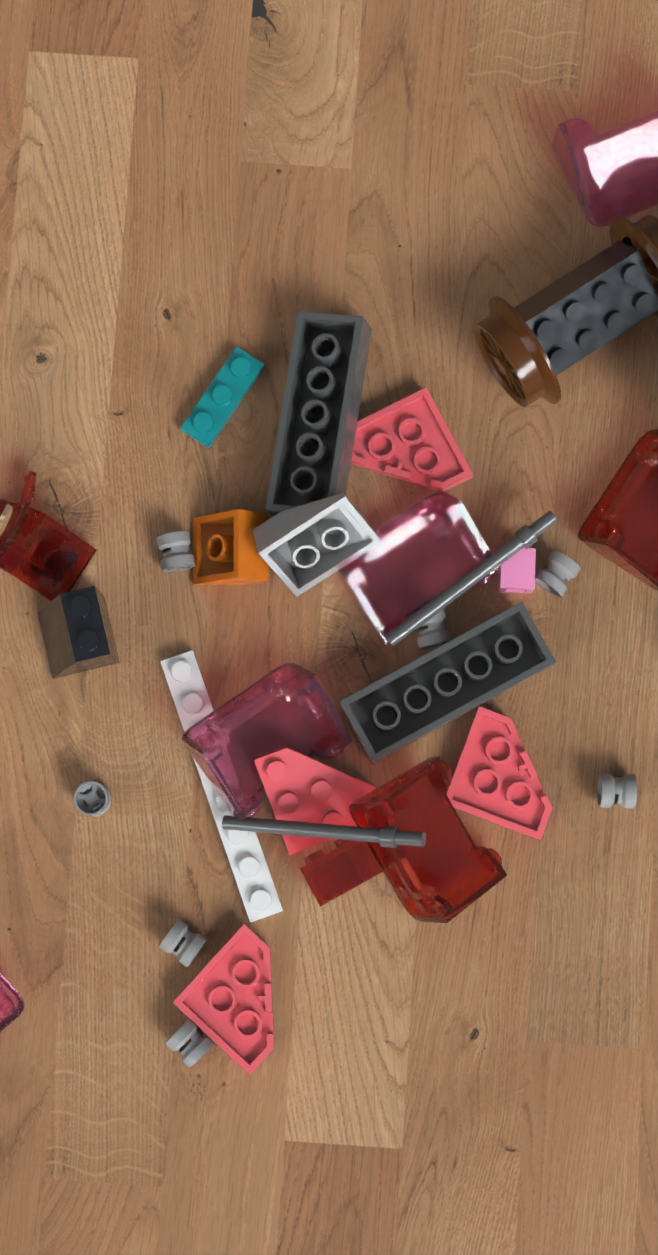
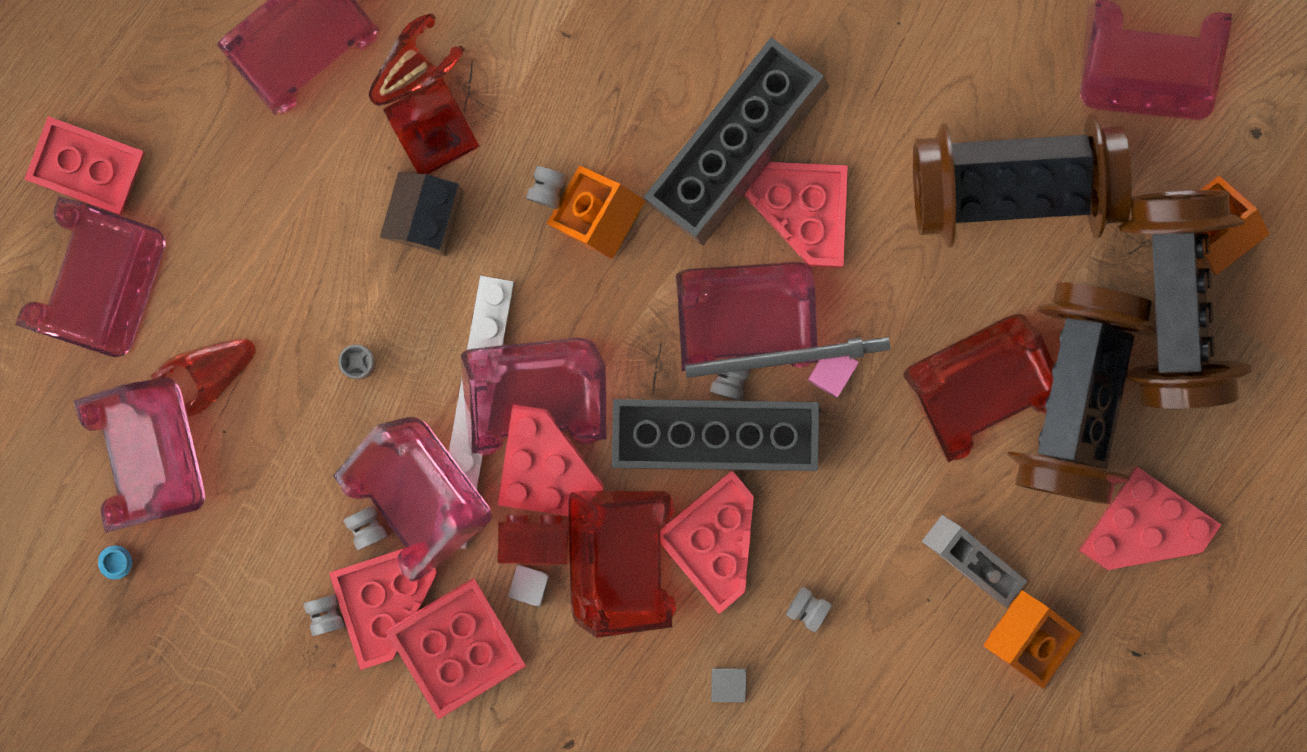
camera: 25 degrees right, 5 degrees up
(210, 884) = (416, 492): none -> clear pink windscreen
(222, 397) = (664, 73): teal plate -> none
(314, 541) = (668, 249): light grey slope -> none
(324, 1005) = (455, 648): none -> coral plate
(357, 911) = (528, 585): none -> light grey slope
(386, 835) = (585, 536): dark grey bar -> none
(558, 572) = (867, 393): light grey wheel -> none
(584, 898) = (728, 685): none -> light grey slope

